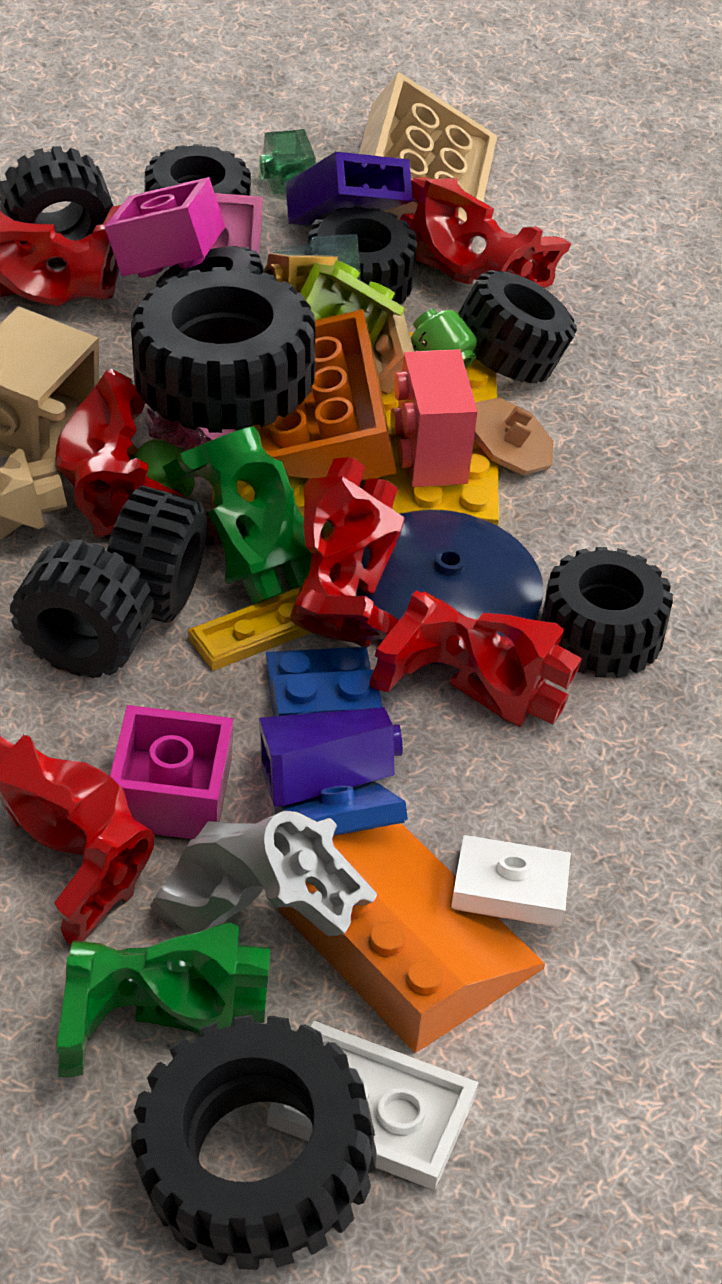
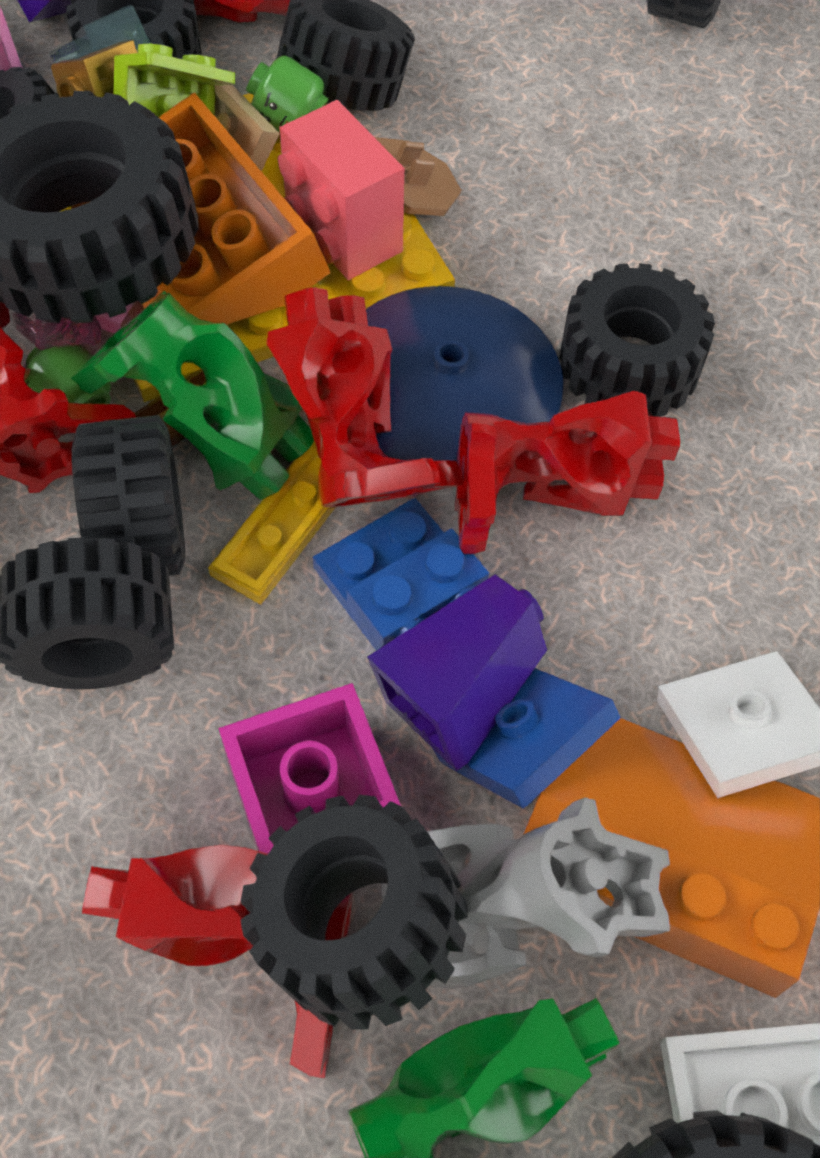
camera: 25 degrees left, 15 degrees up
(140, 806) = (393, 953): none -> black tyre

